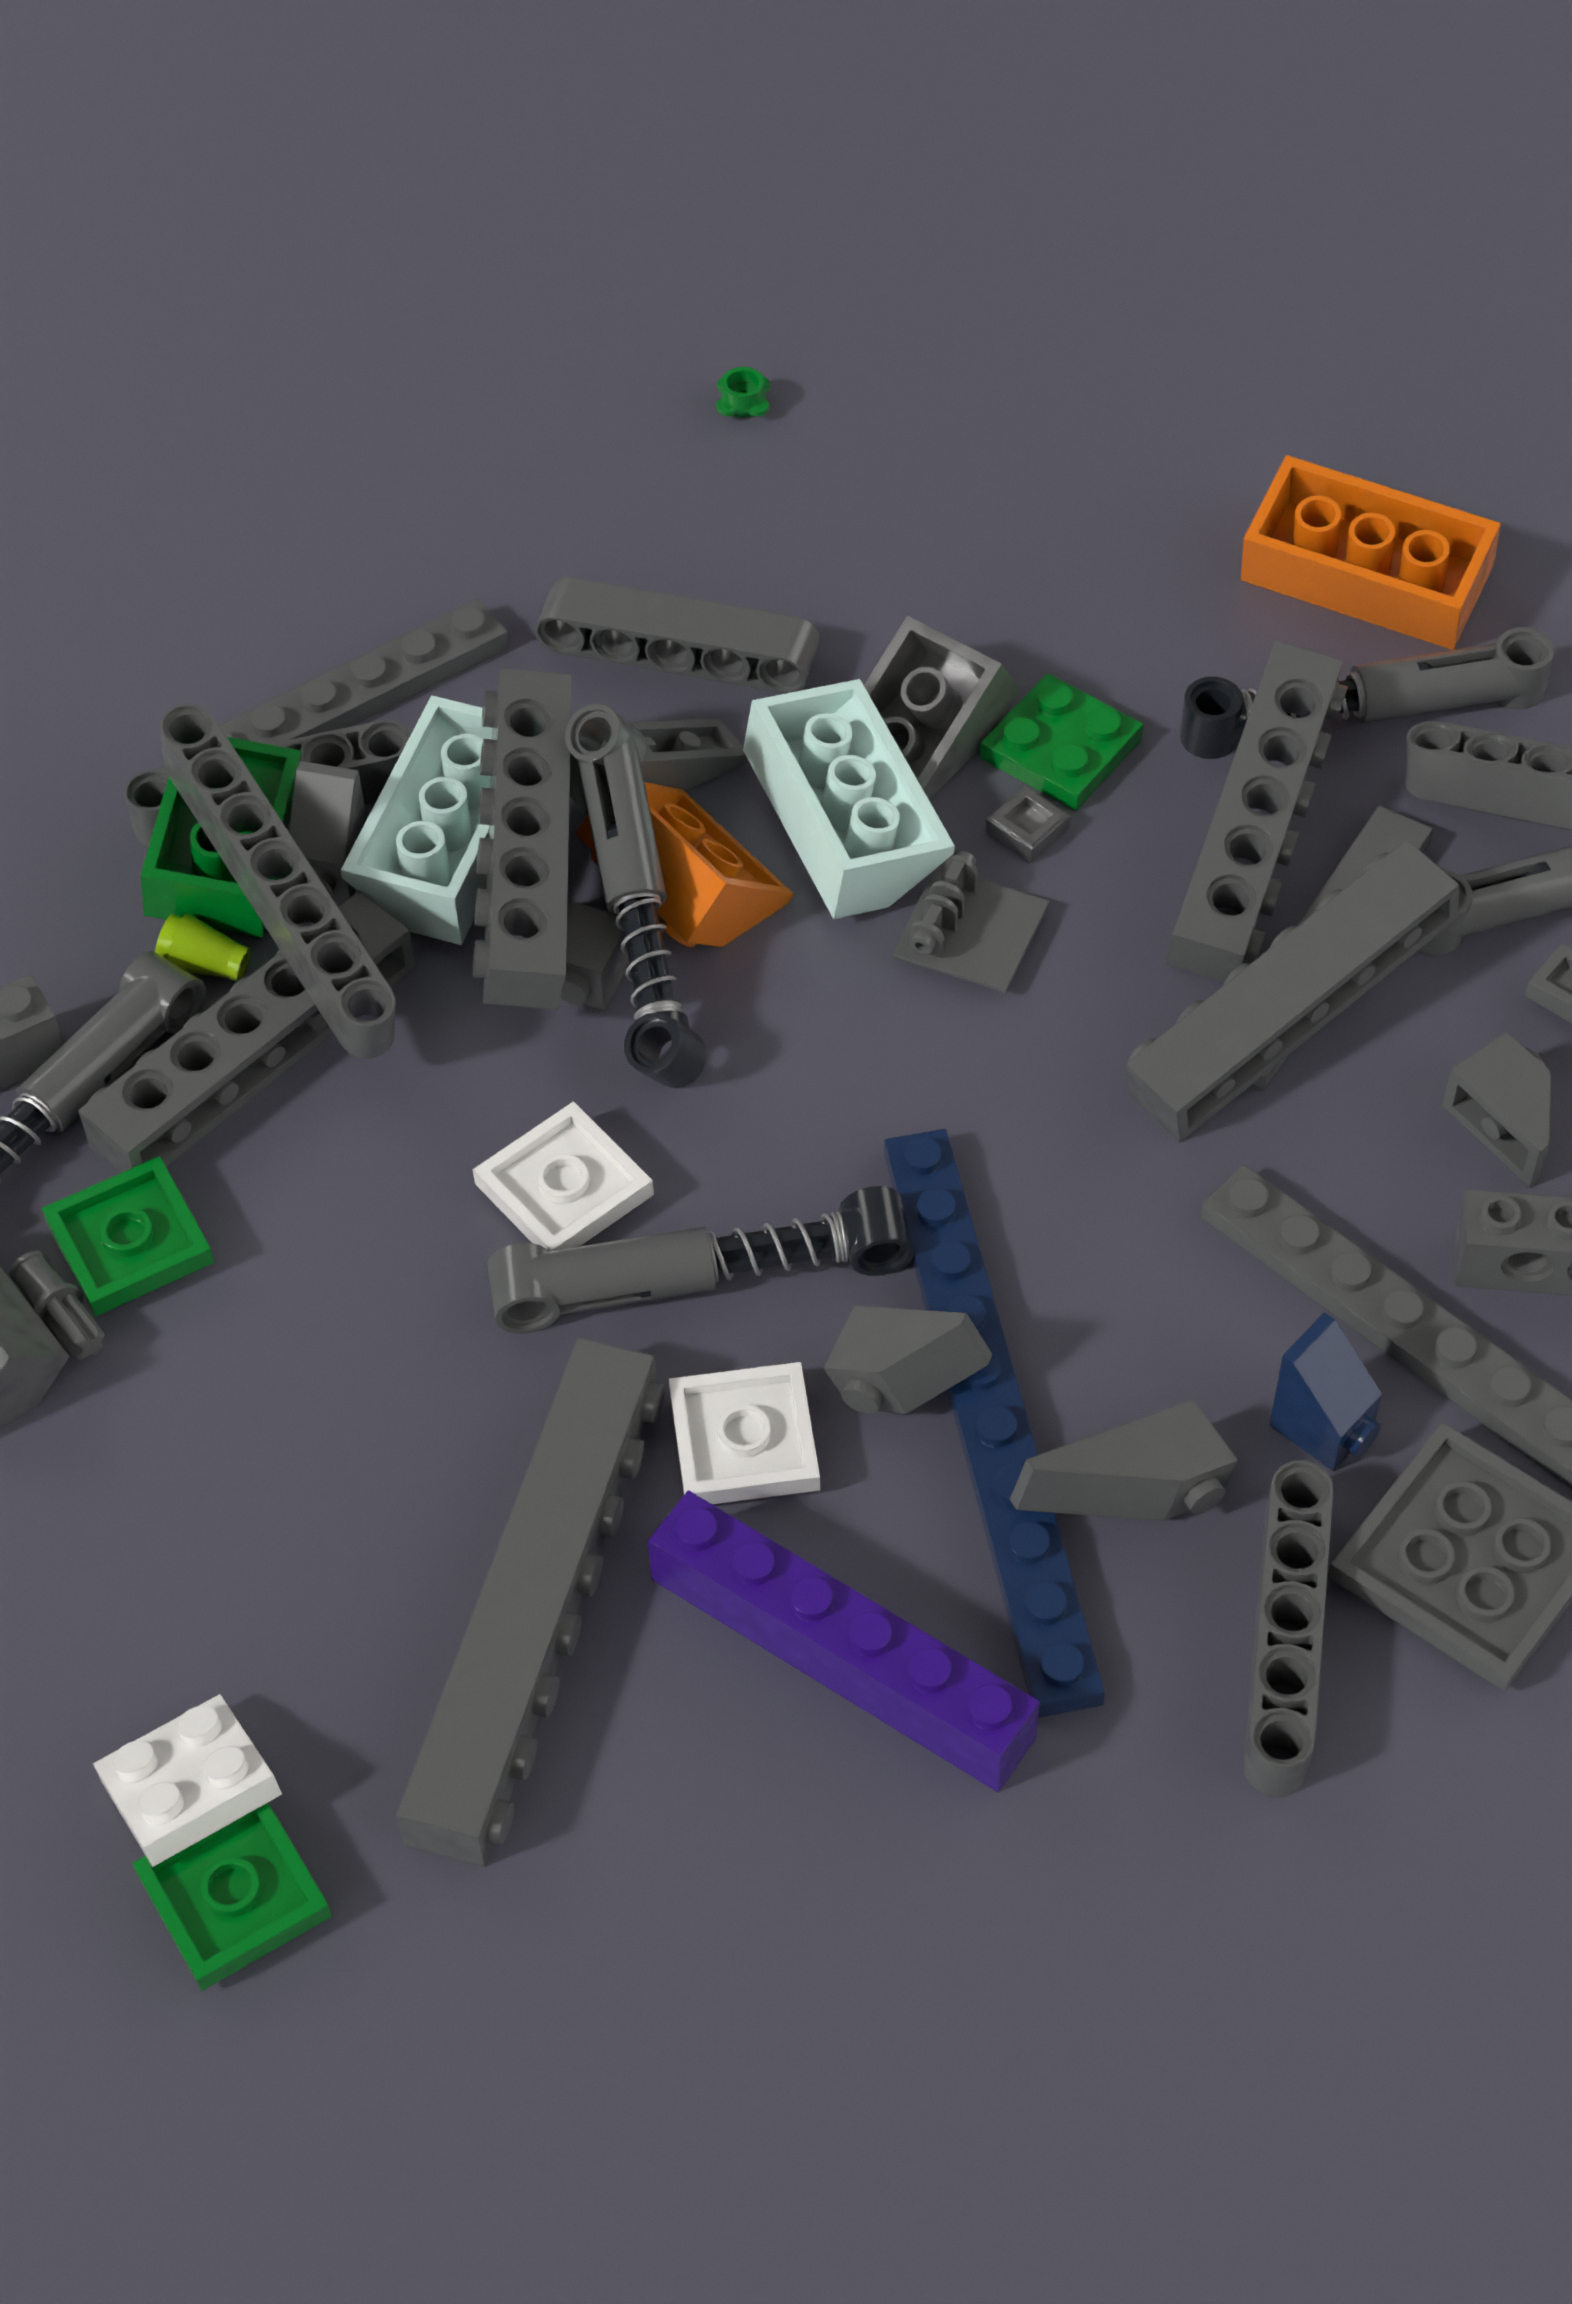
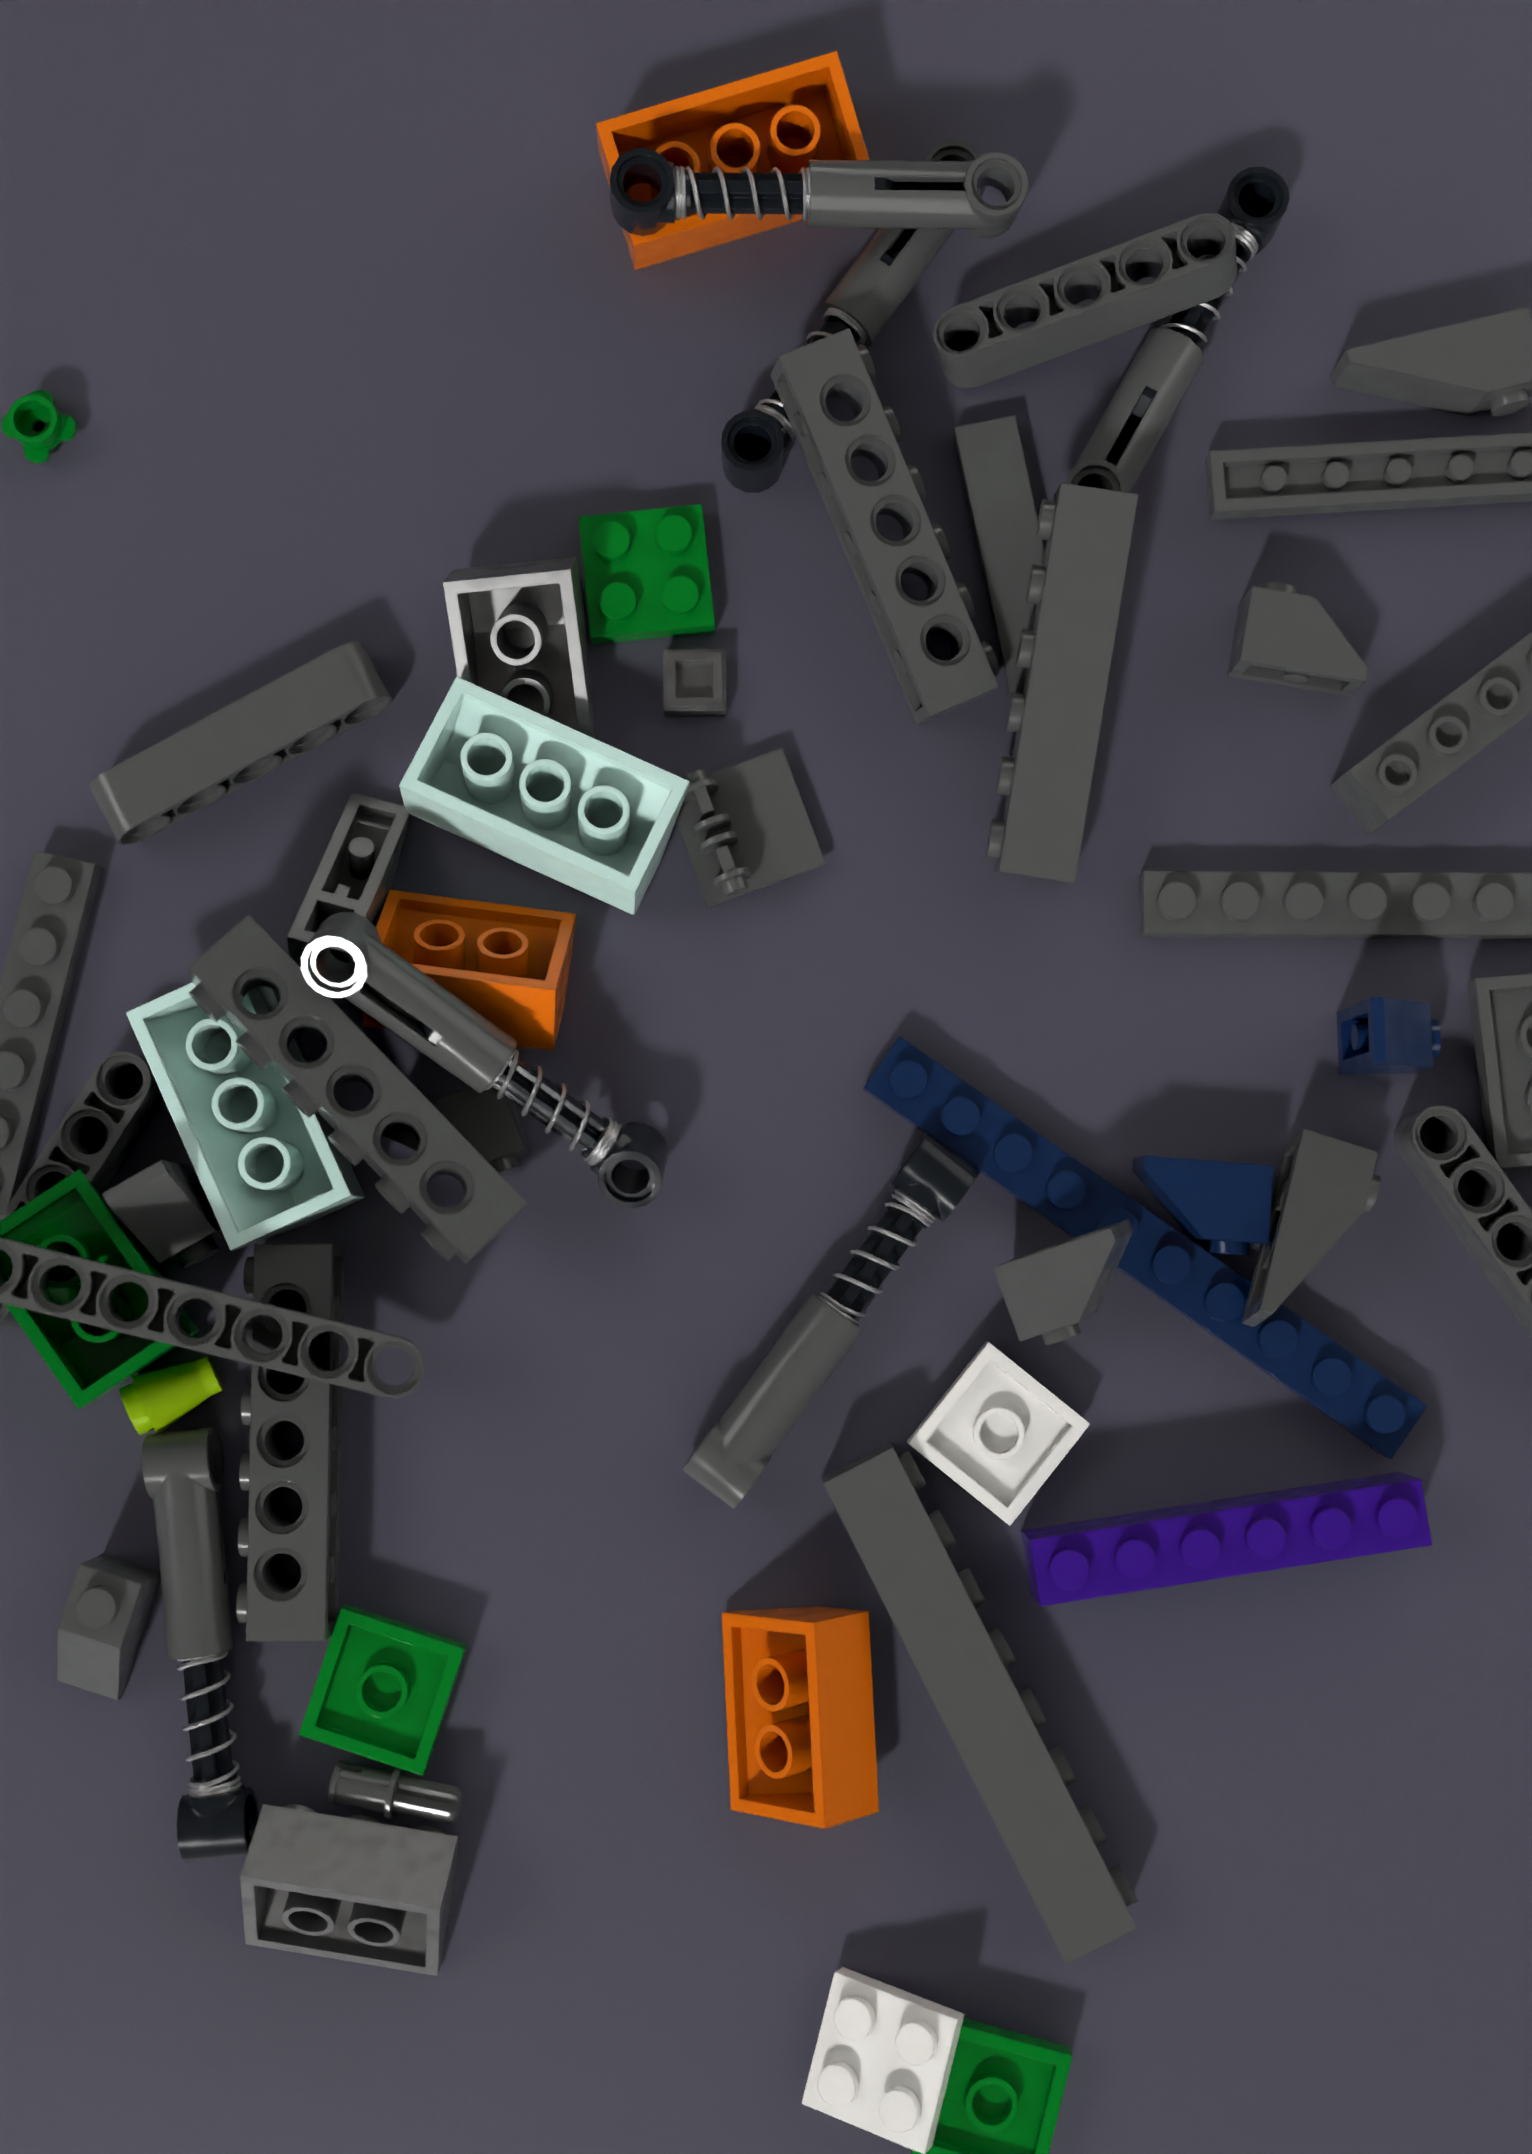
camera: 45 degrees left, 30 degrees up
(397, 1493) = (800, 1714): none -> orange slope
(563, 1181) = (662, 1344): white plate -> none
(1074, 1393) = (1212, 1199): none -> dark blue slope
(1521, 658) = (826, 193): none -> piece

